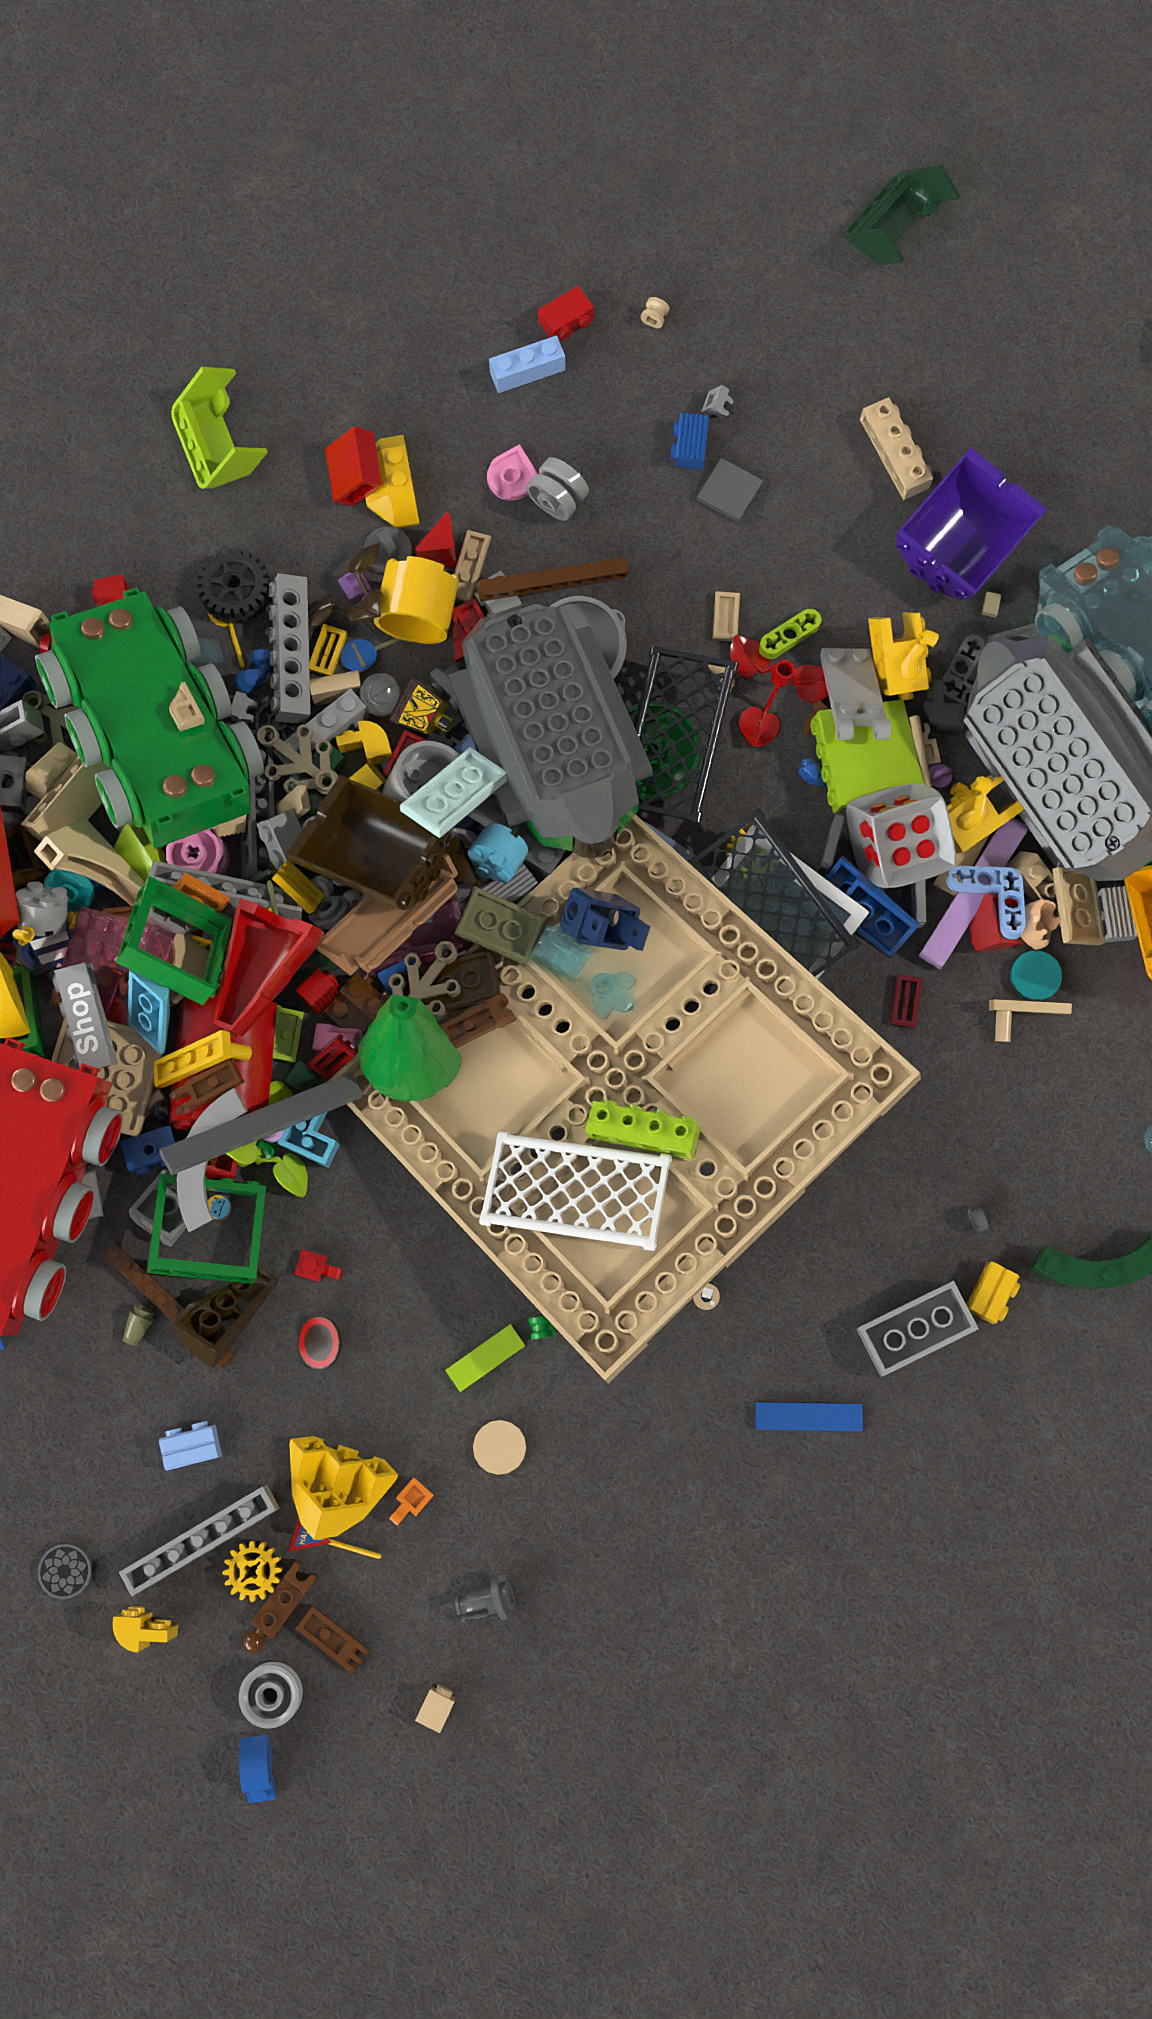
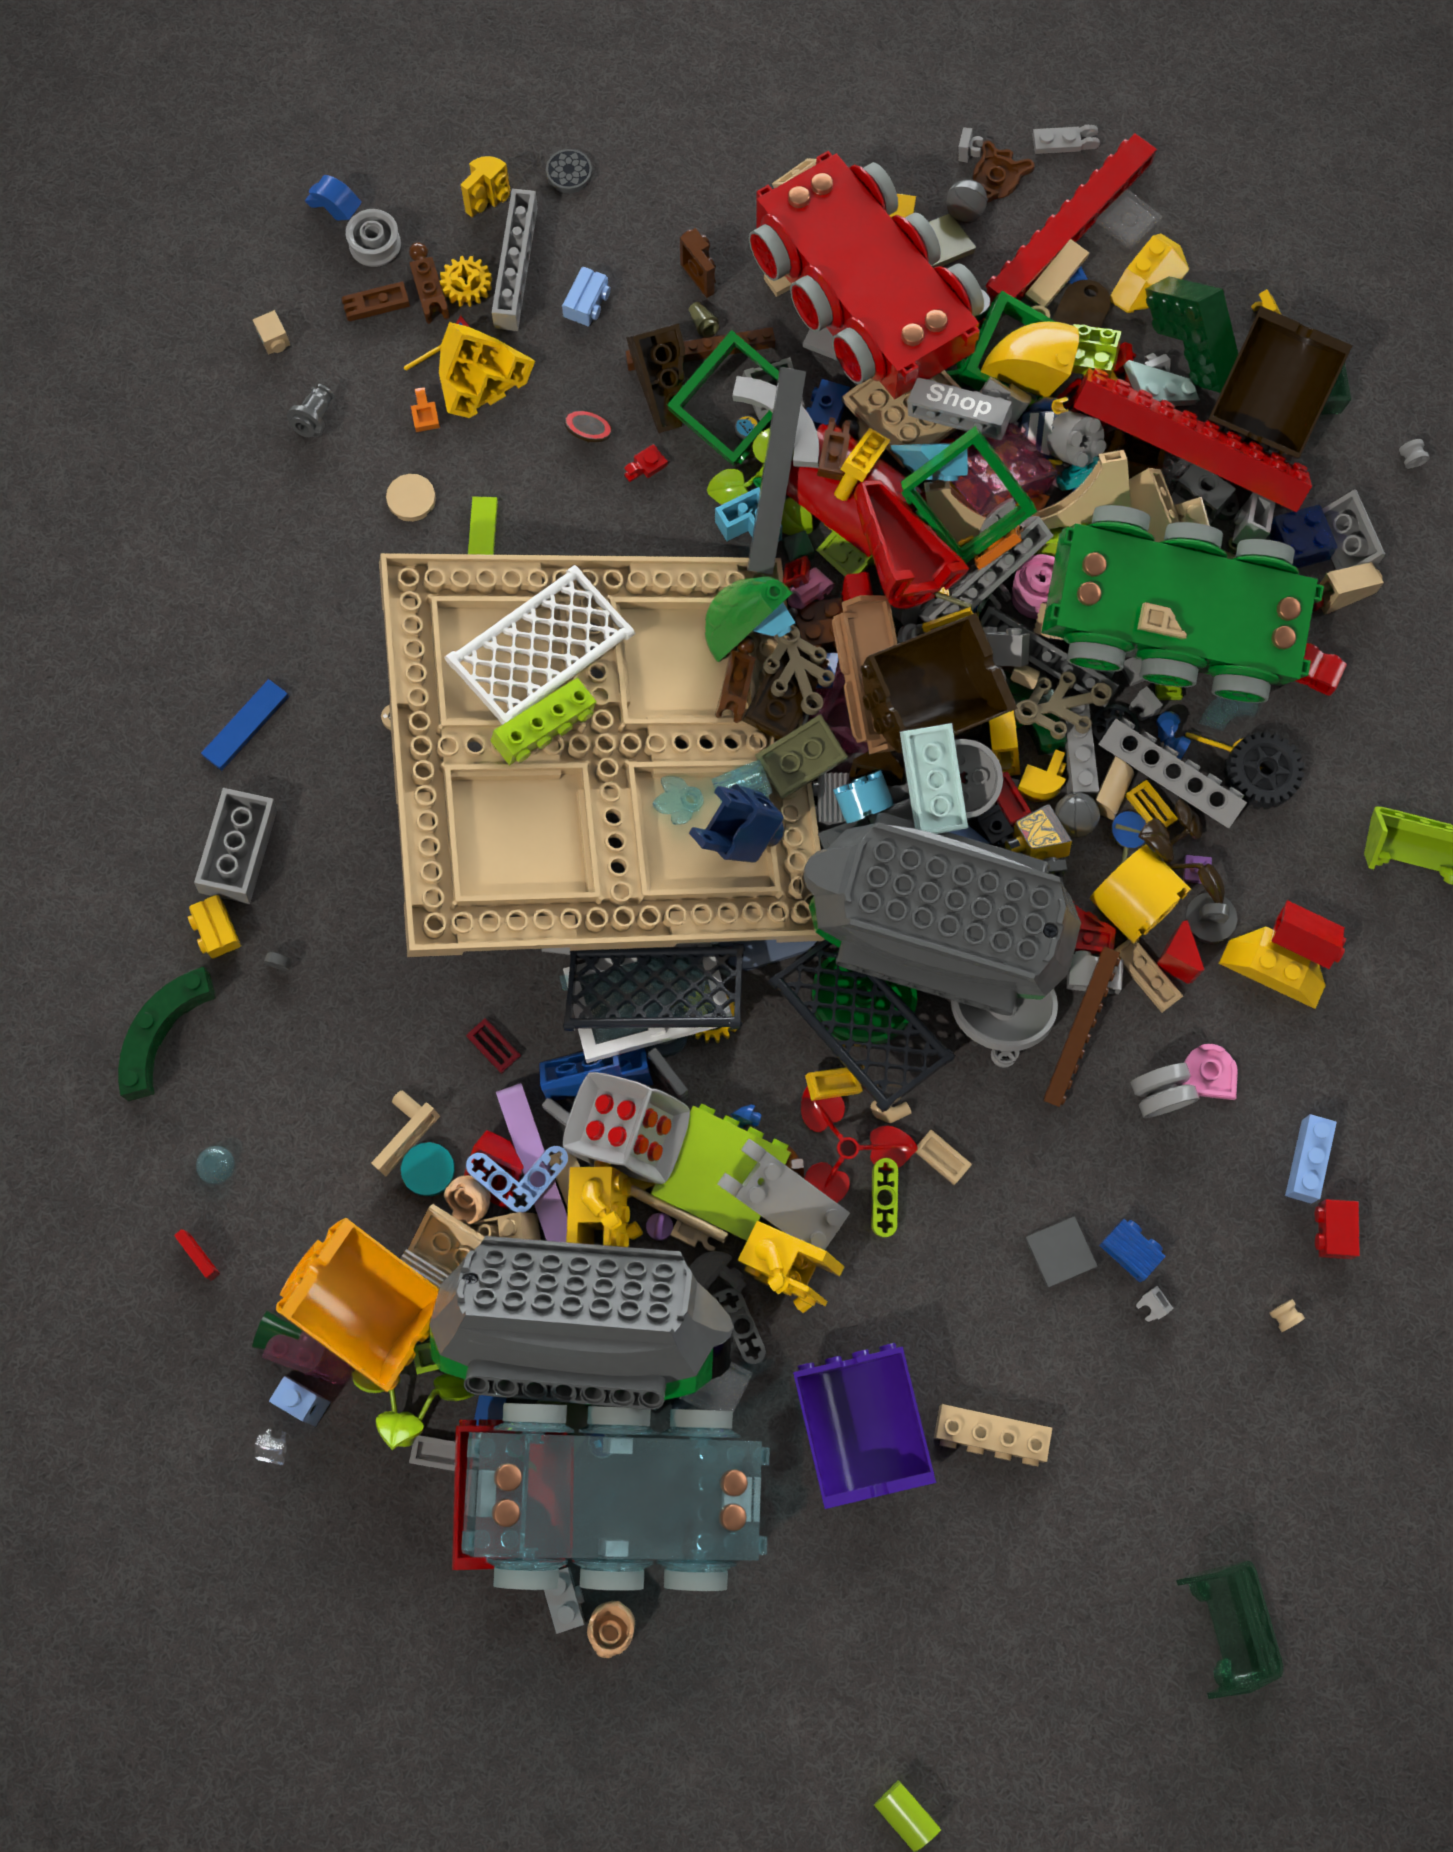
camera: 125 degrees right, 5 degrees down
(40, 990) = (1019, 398): none -> light grey brick
(81, 1375) = (696, 261): none -> reddish brown plate
(739, 730) = (832, 1084): none -> yellow tile
(991, 604) = (780, 1403): tan piece -> none

